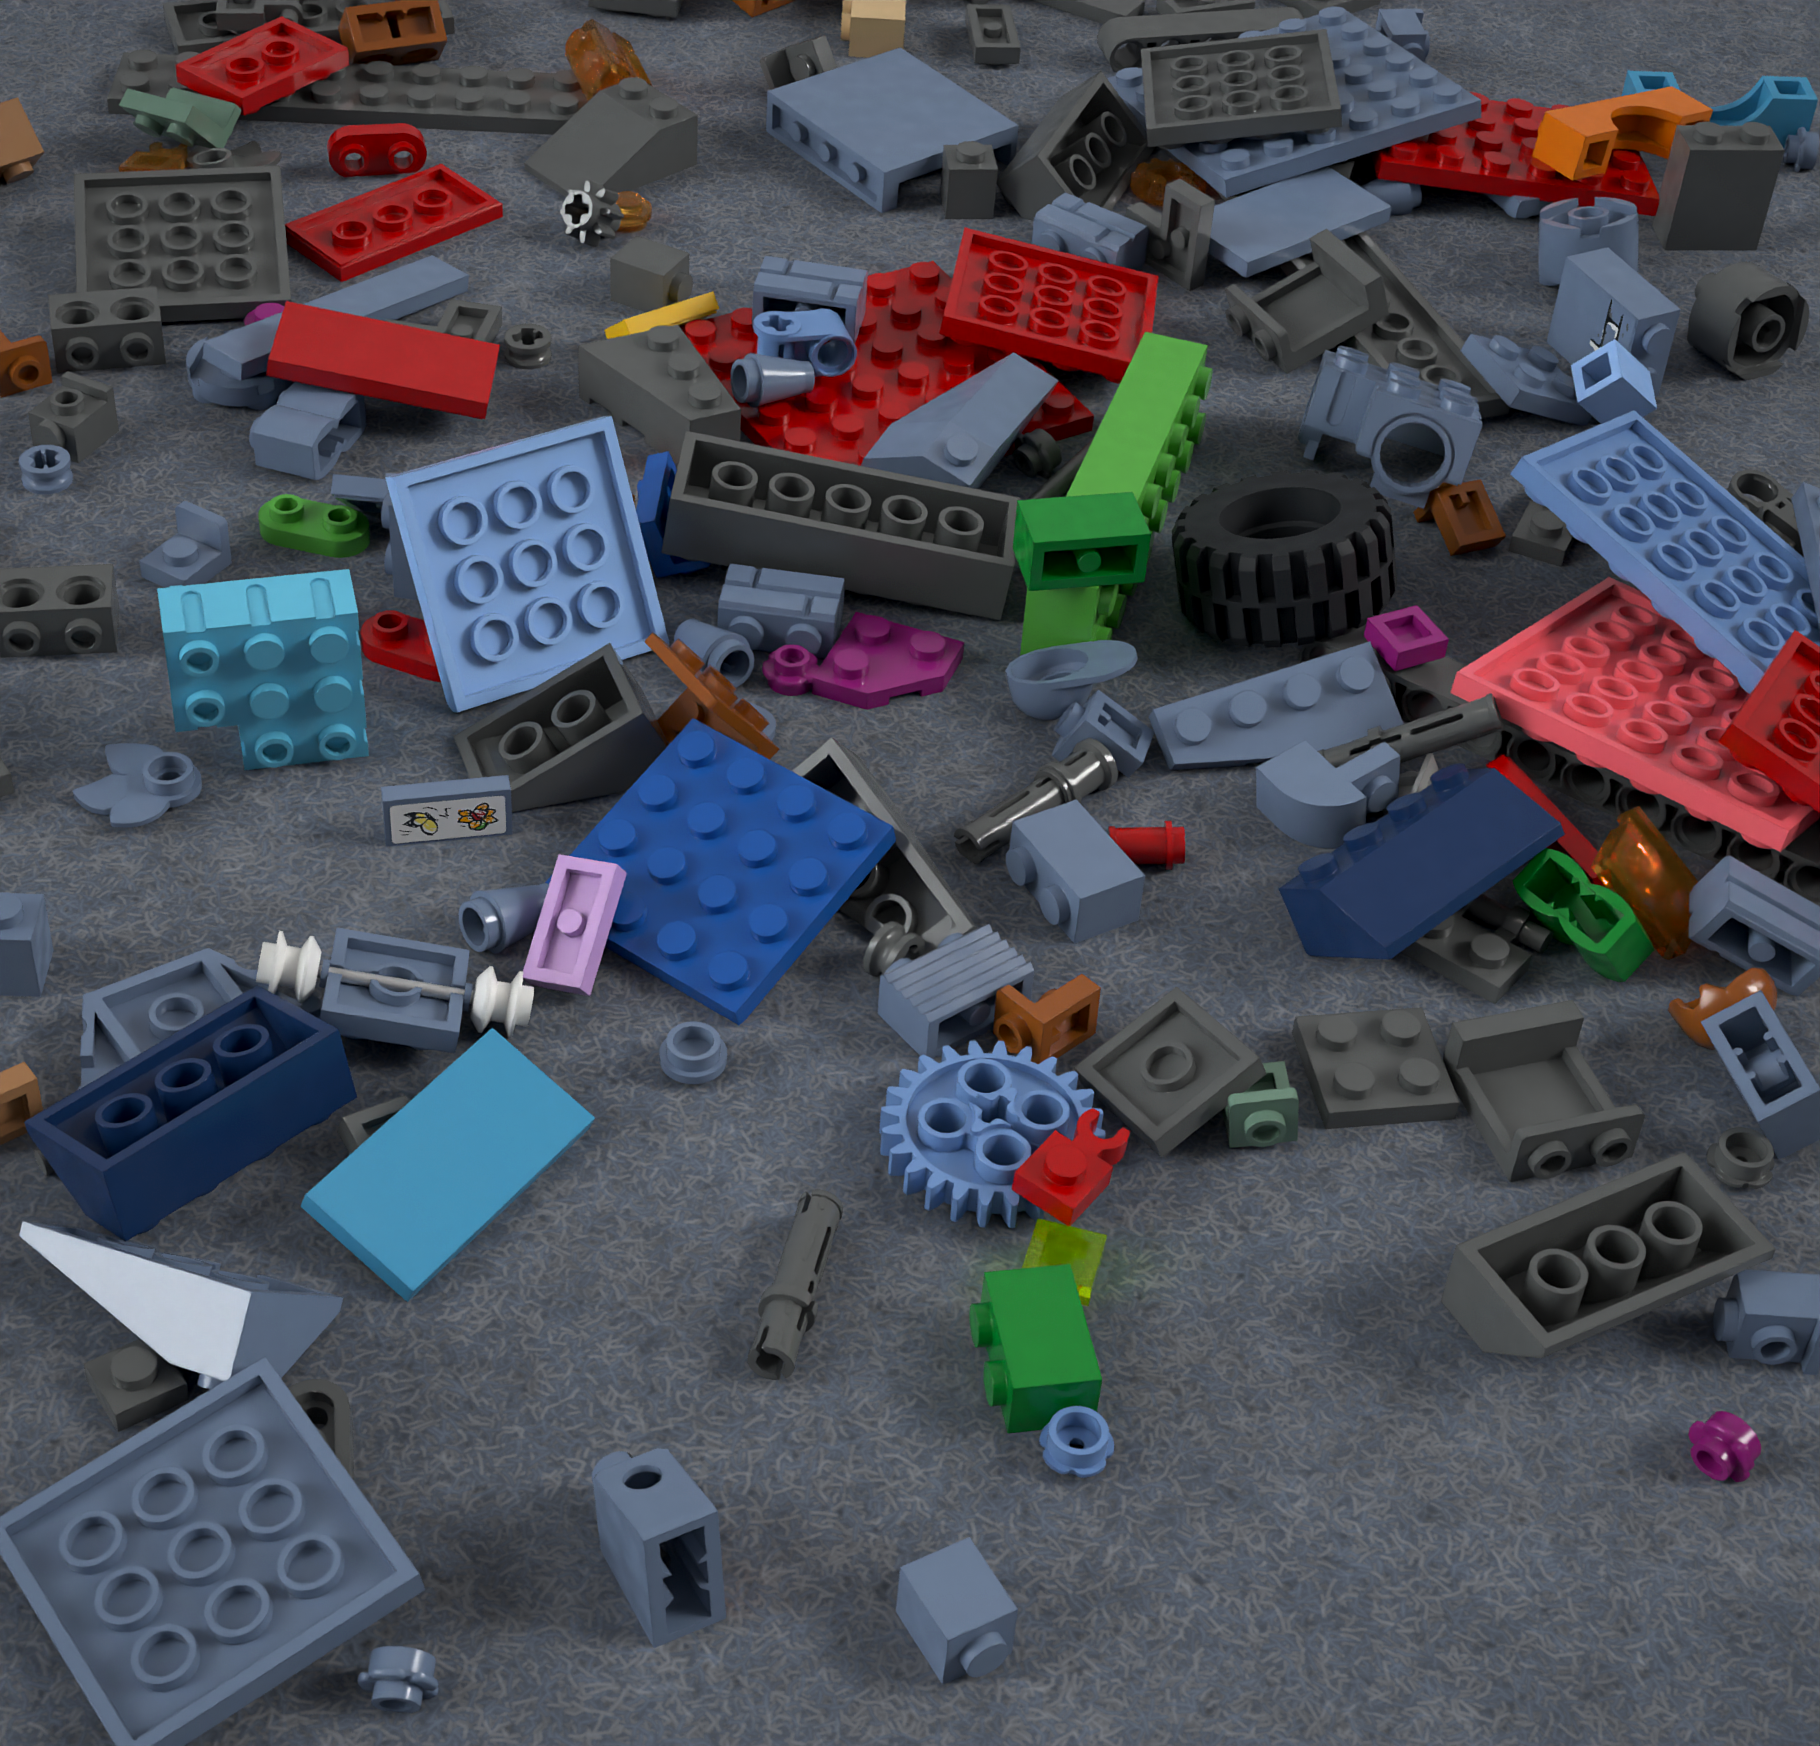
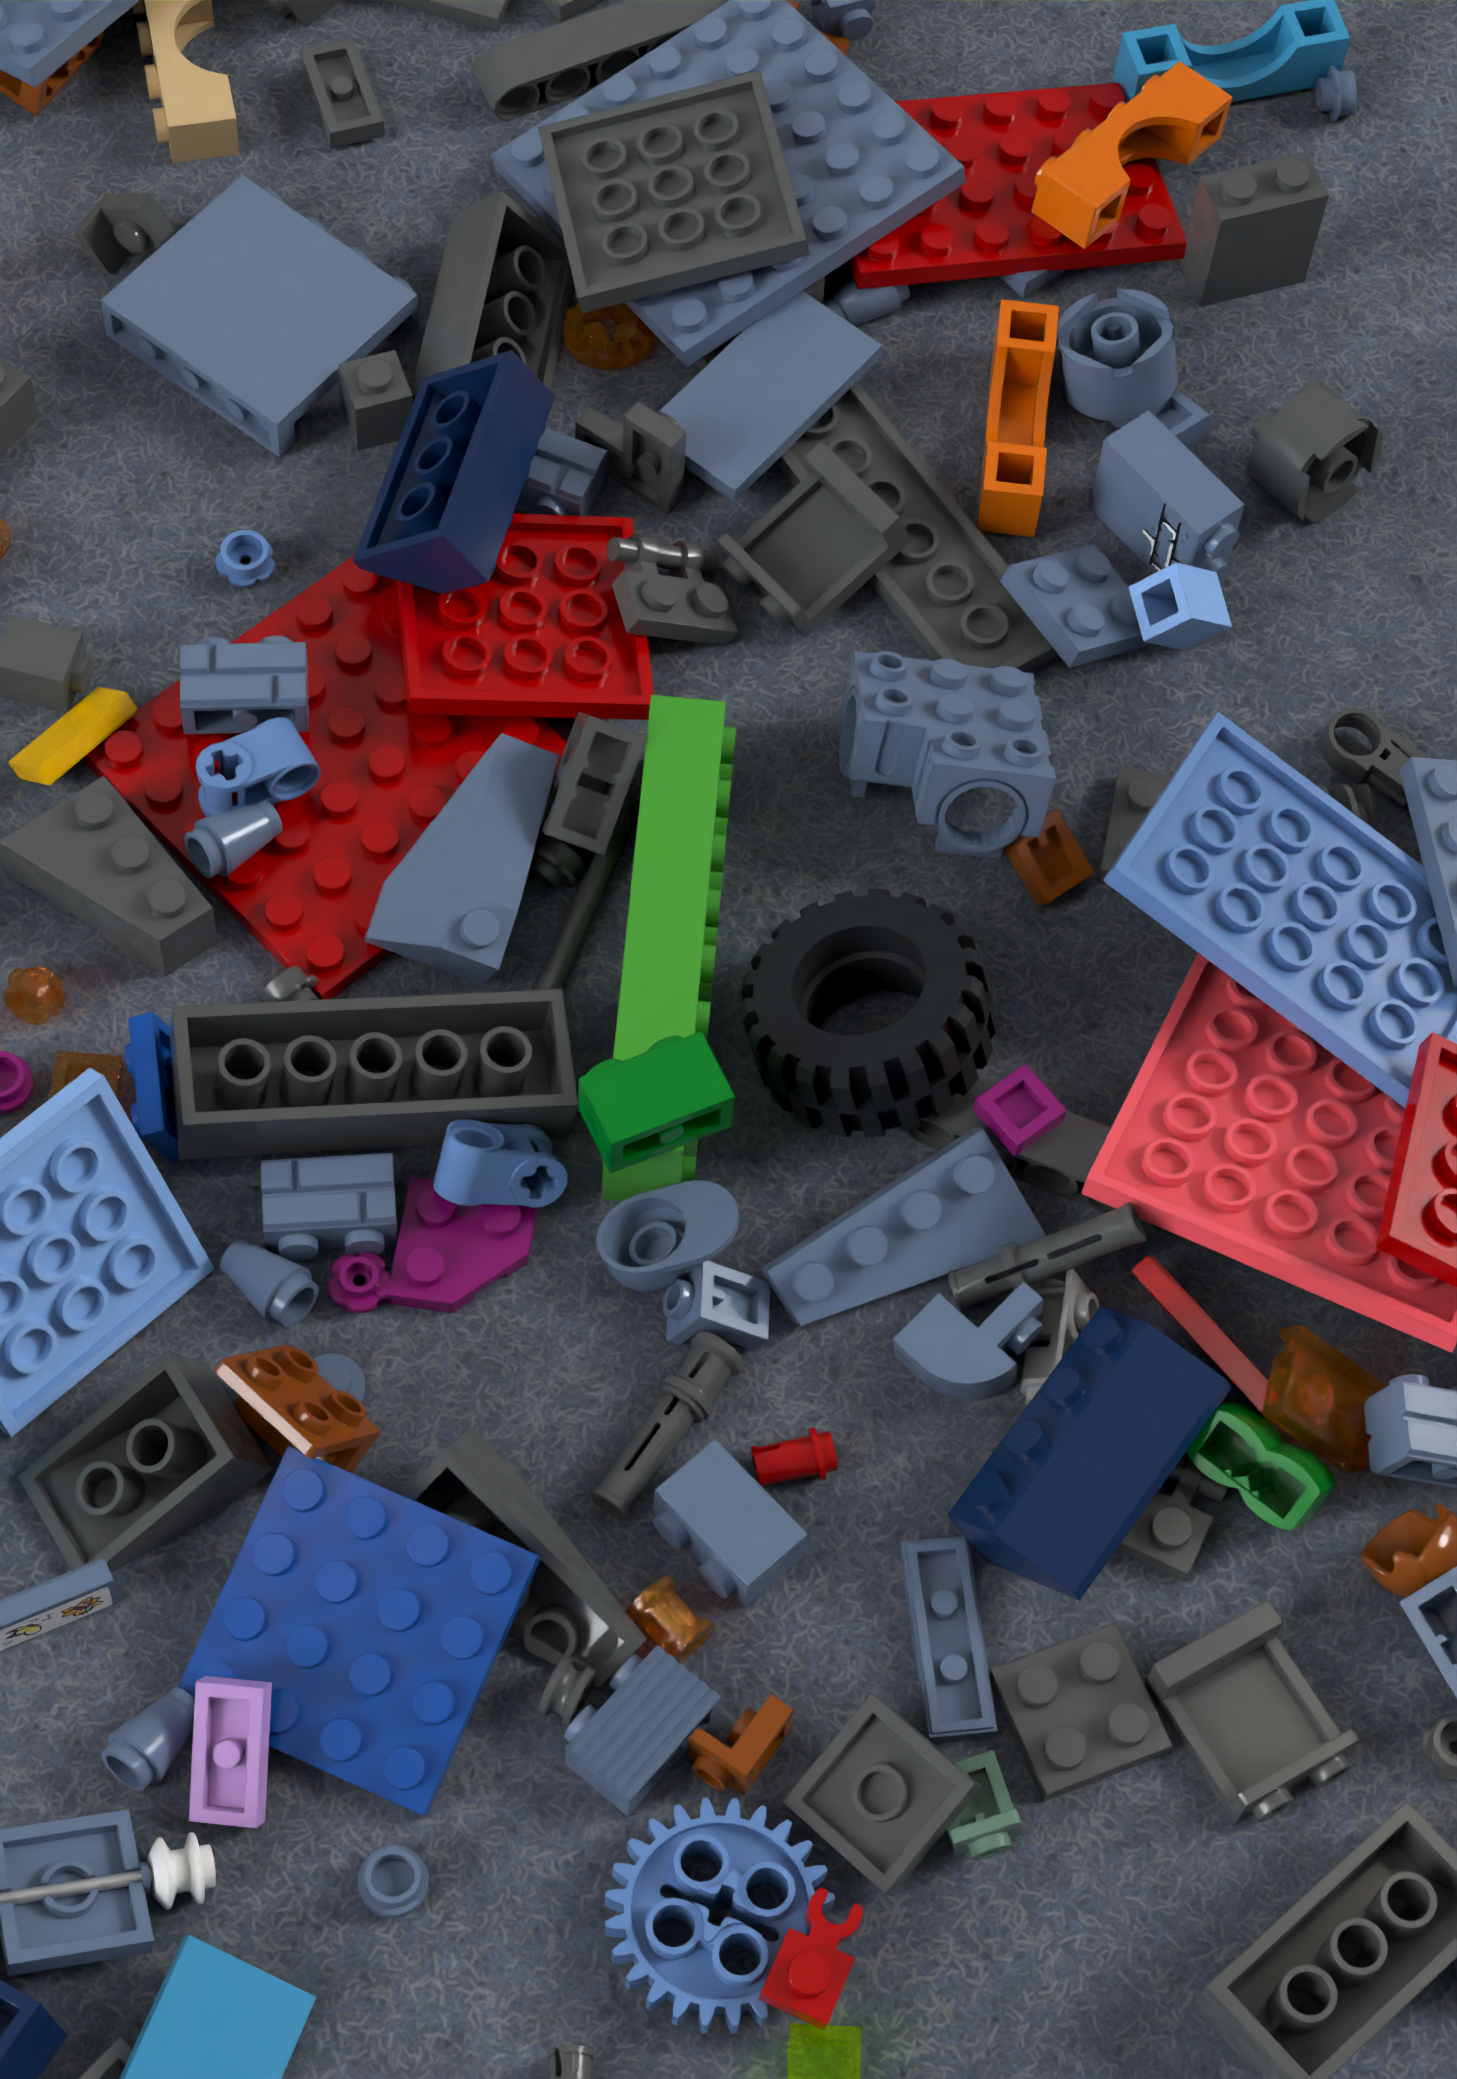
camera: 15 degrees left, 20 degrees up
(835, 249) = (245, 545): none -> medium blue plate
(924, 599) = (490, 1161): none -> medium blue piece
(1005, 919) = (670, 1619): none -> clear orange bush
(1023, 204) = (456, 475): none -> dark blue slope
(1081, 388) = (591, 783): none -> dark grey brick
(1179, 312) = (672, 605): none -> dark grey plate
(1261, 987) = (948, 1640): none -> sand blue tile
(1495, 273) = (1017, 418): none -> orange arch

